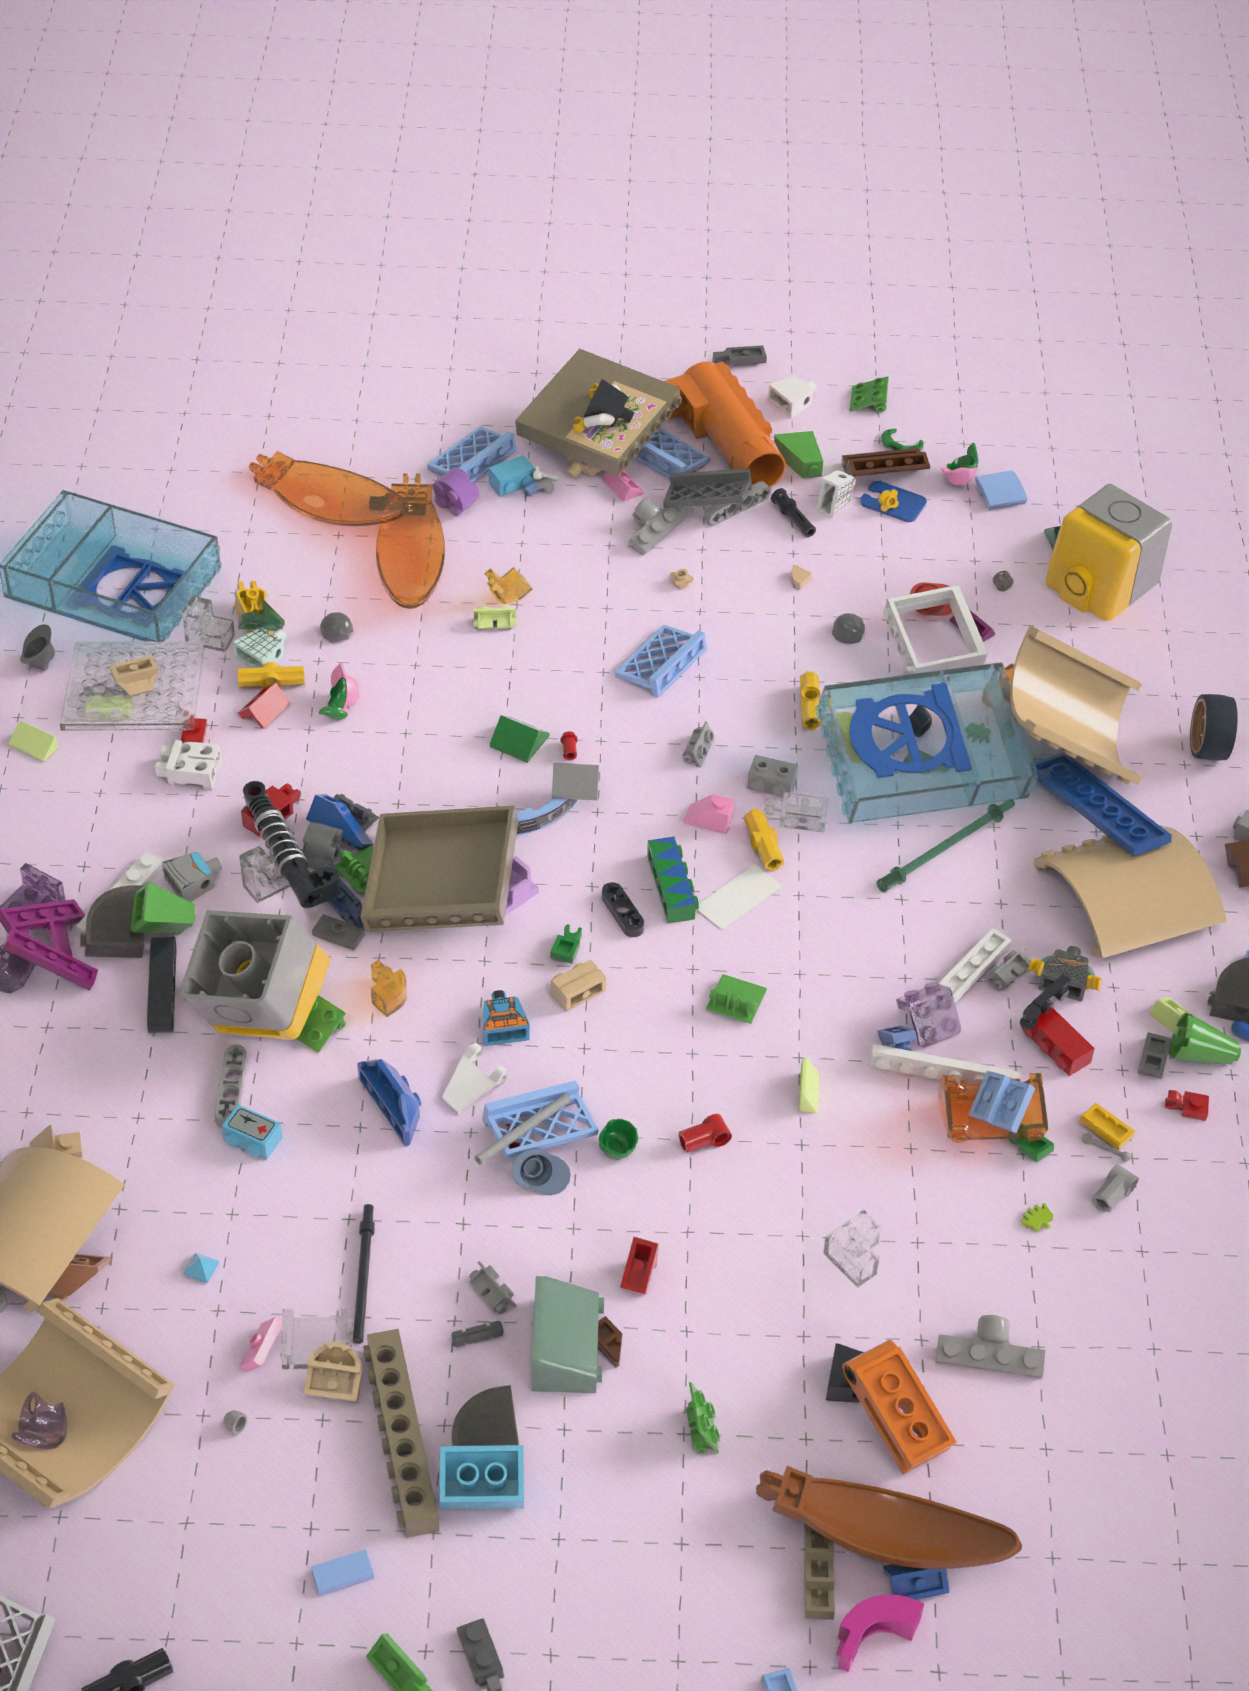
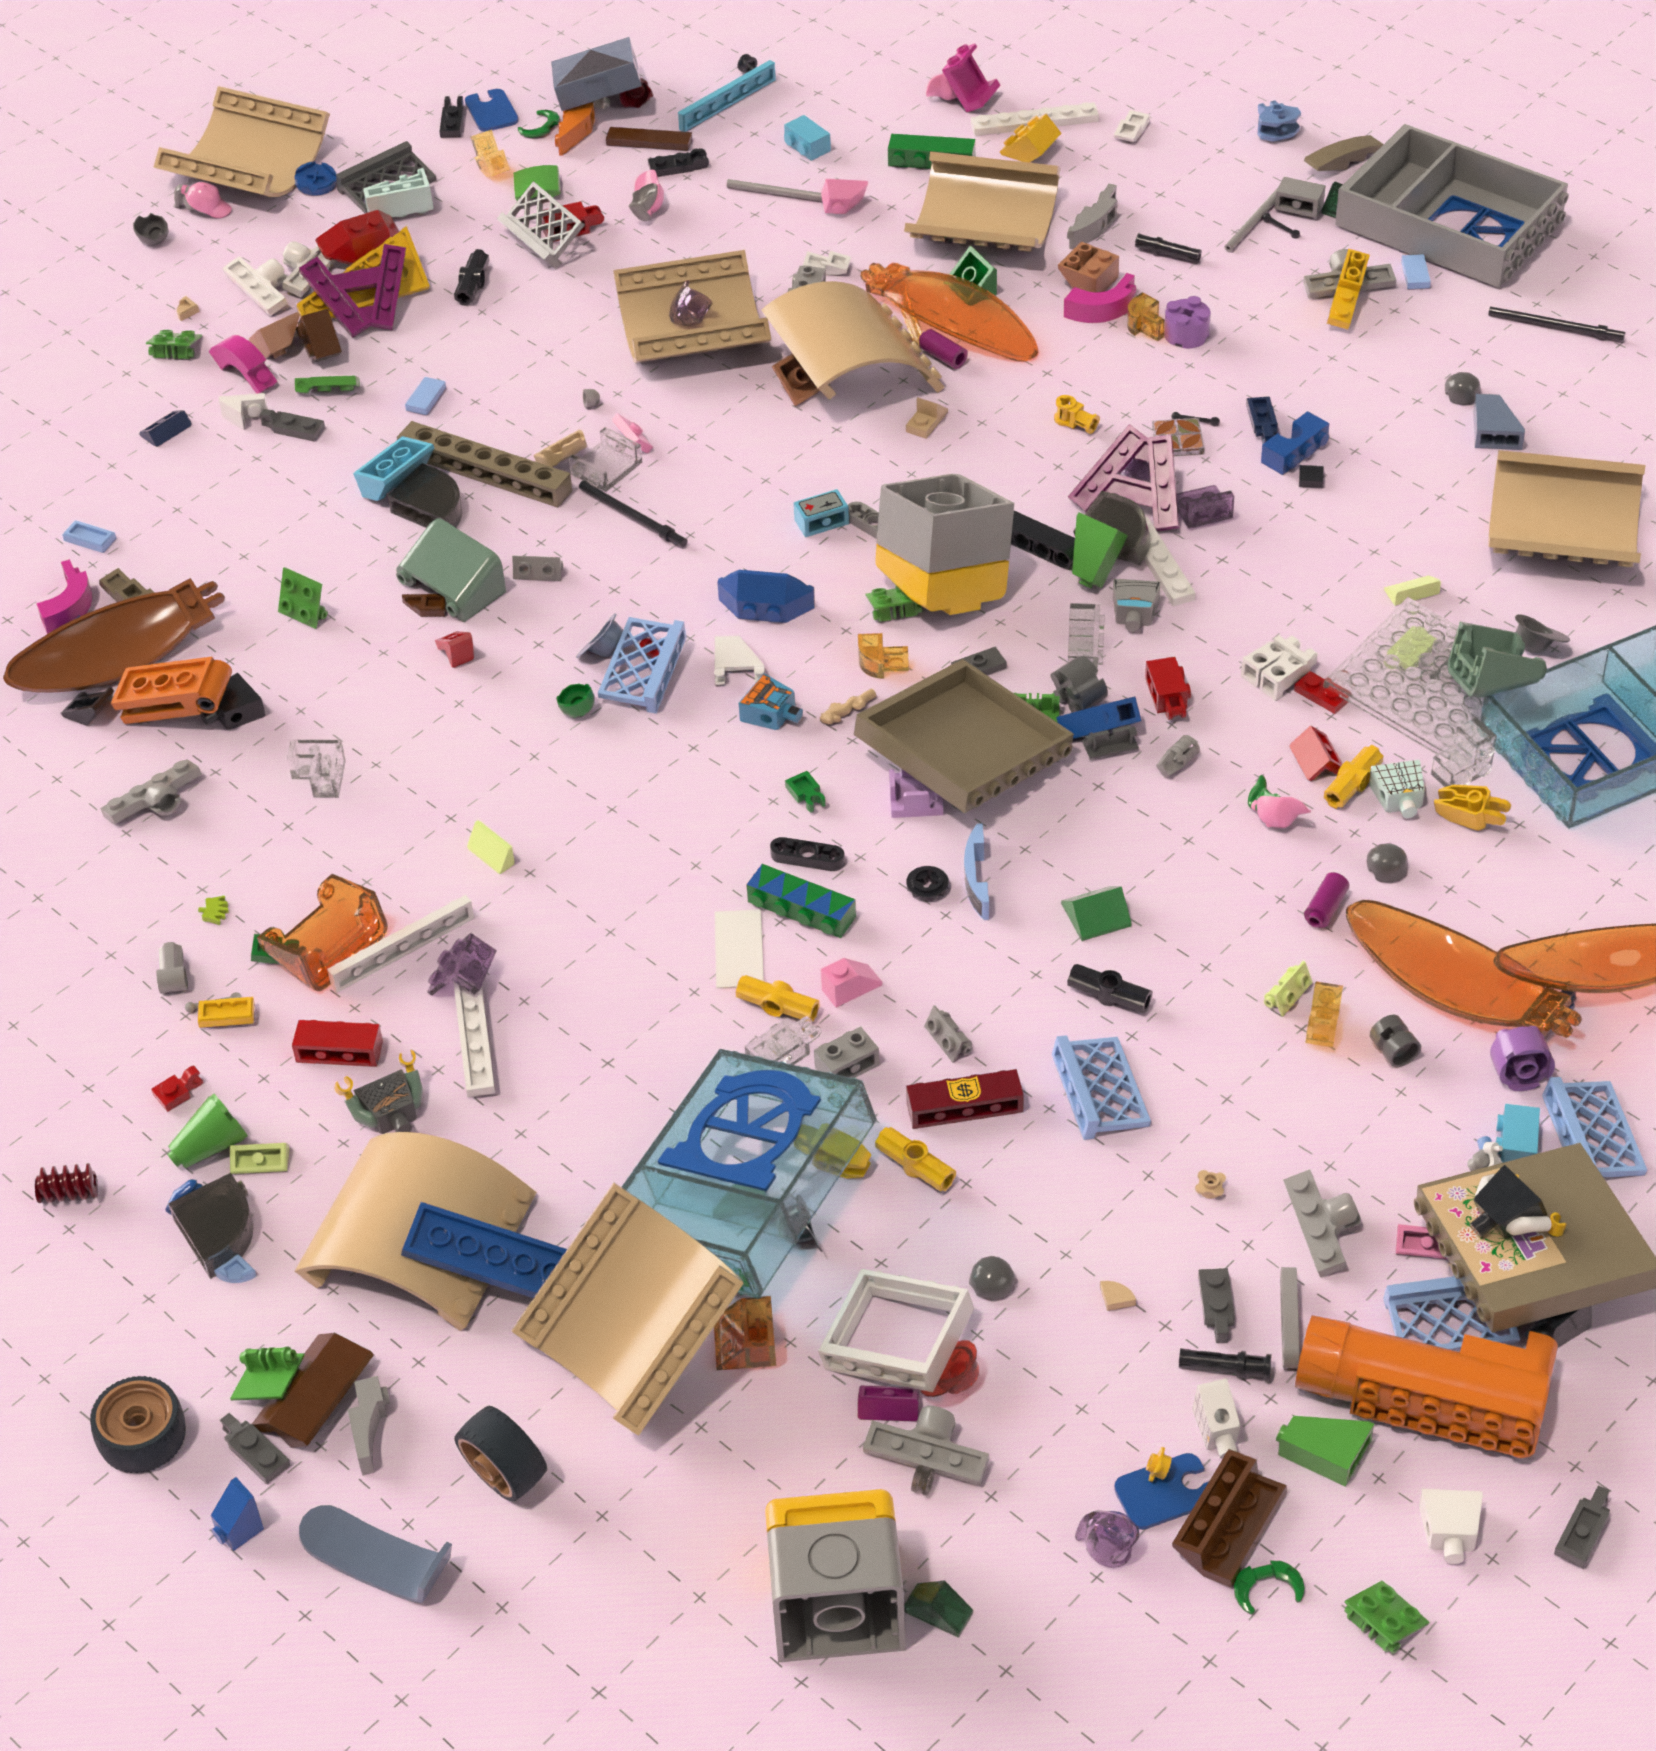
camera: 135 degrees right, 0 degrees up
(126, 623) = (1491, 661): none -> sand green windscreen
(135, 675) = (1423, 661): tan slope -> none
(201, 1267) = (735, 442): medium azure slope -> none
(267, 618) = (1429, 790): clear green slope -> none
(309, 887) = (1024, 637): black piece -> none
(334, 770) = (1178, 755): none -> light grey hinge
(347, 905) = (1011, 677): dark blue hinge -> none
(403, 634) = (1326, 900): none -> magenta brick
(463, 983) = (839, 710): none -> tan animal
(477, 1333) = (513, 542): dark grey axle -> none
(493, 550) = (1395, 1040): none -> dark grey wheel
(522, 1129) = (640, 637): light grey piece -> none
(569, 742) = (1043, 935): red pin -> none
(575, 781) = (982, 888): light grey slope -> none
(577, 985) = (753, 769): tan brick -> none
(582, 691) = (1109, 988): none -> black piece
(586, 824) = (919, 876): none -> black gear
(711, 482) = (1329, 1298): dark grey fence -> none
(711, 1131) = (521, 759): red piece -> none
(736, 998) = (629, 864): bright green hinge -> none
(742, 705) = (964, 1098): none -> dark red brick
(757, 537) = (1216, 1301): none -> dark grey hinge
(897, 1037) = (460, 923): blue slope -> none
(898, 875) = (629, 1069): clear green bar -> none
(950, 494) = (1108, 1536): none -> clear purple piece
(959, 1484) = (86, 706): none -> black slope
(963, 468) = (1145, 1583): hair -> none
(981, 587) = (928, 1446): none -> light grey plate
(1001, 489) = (1081, 1616): light blue slope -> none
(1001, 973) = (446, 1061): light grey hinge -> none
(1001, 1101) = (323, 933): light blue slope -> none
(1045, 1002) = (365, 1032): black hinge -> none
(1154, 1055) = (245, 1104): dark grey slope -> none

